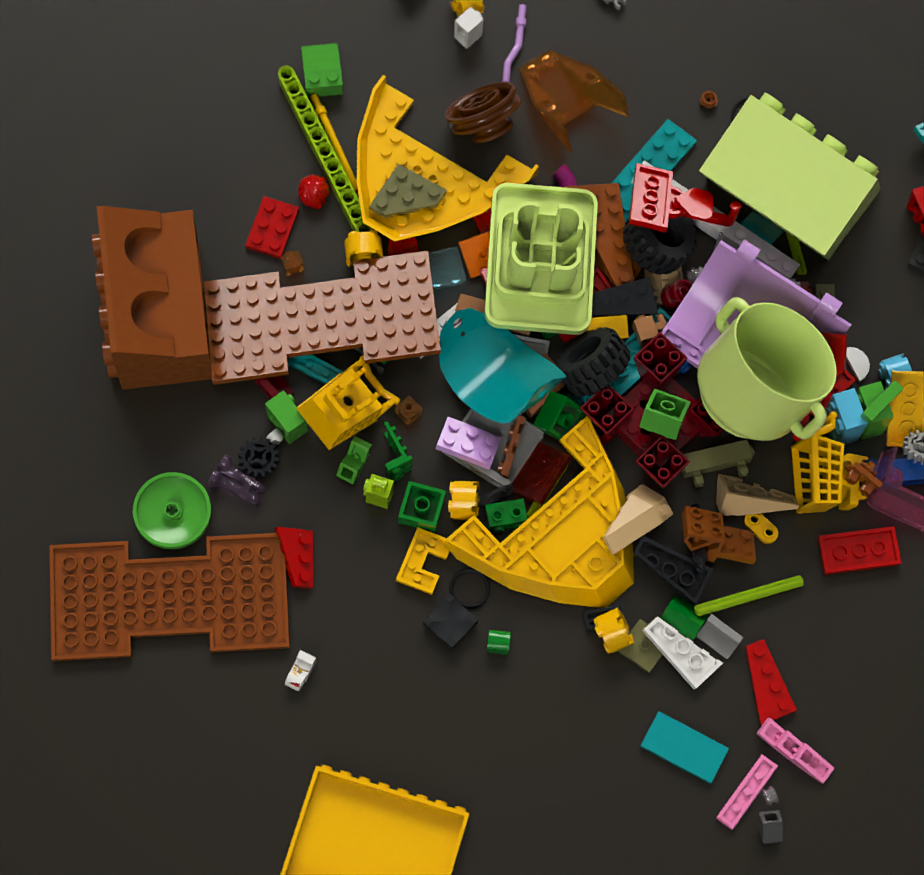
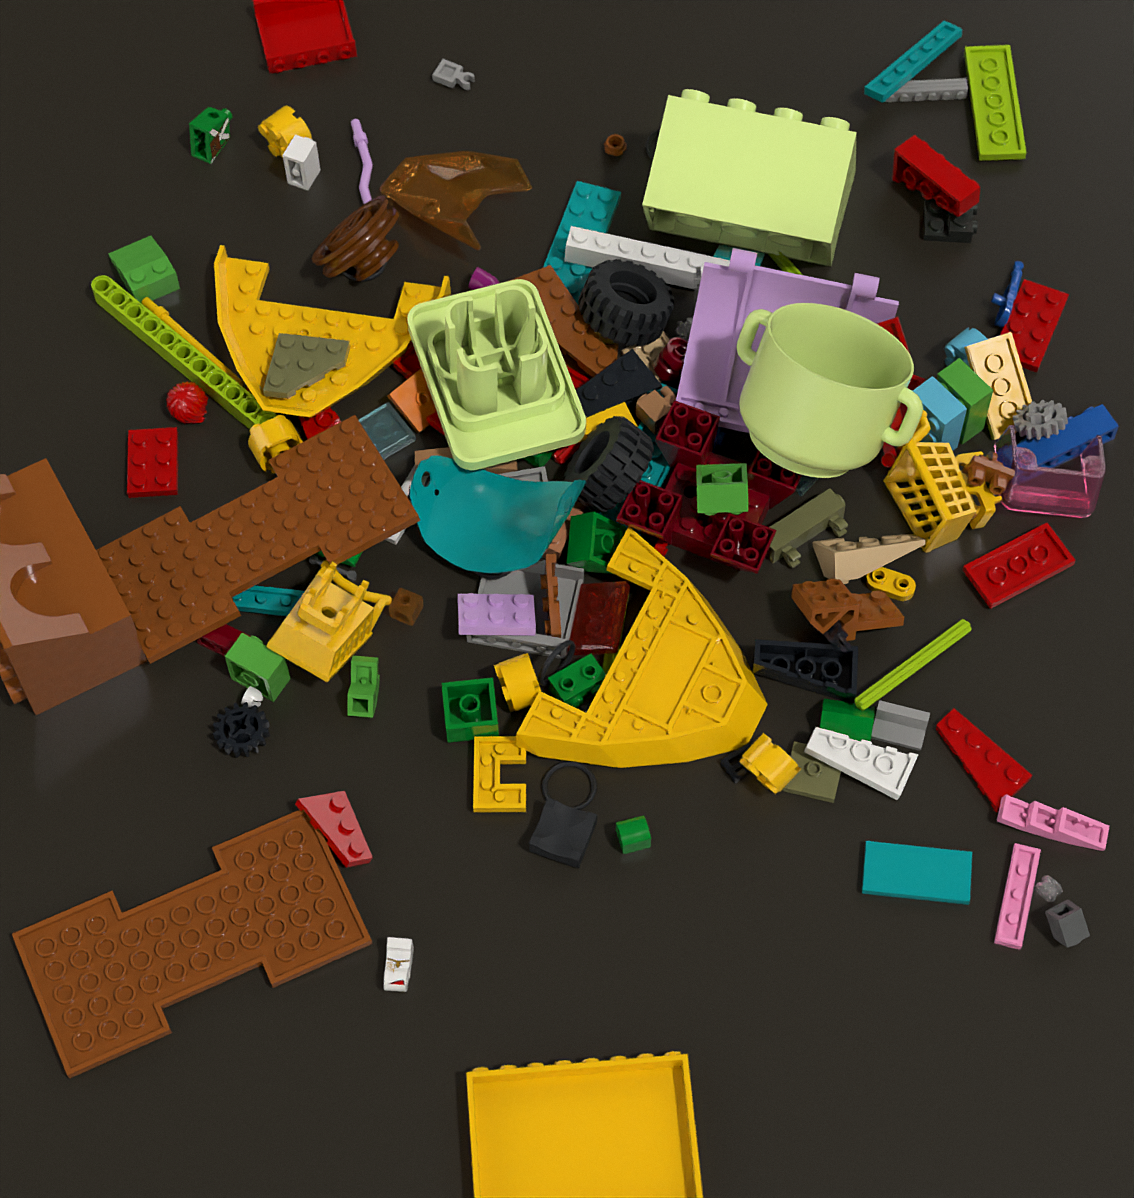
camera: 15 degrees left, 10 degrees down
(172, 510) = (155, 832): bright green dish -> none
(218, 480) = (206, 757): clear purple piece -> none
(292, 262) = (193, 491): clear orange plate -> none
(378, 491) = (408, 710): lime brick -> none
(402, 464) = (422, 670): green plate -> none
(639, 515) = (739, 621): tan wedge -> none
(657, 200) = (608, 260): plate -> none
(858, 363) = (923, 362): white tile -> none
(882, 402) = (972, 378): bright green piece -> none

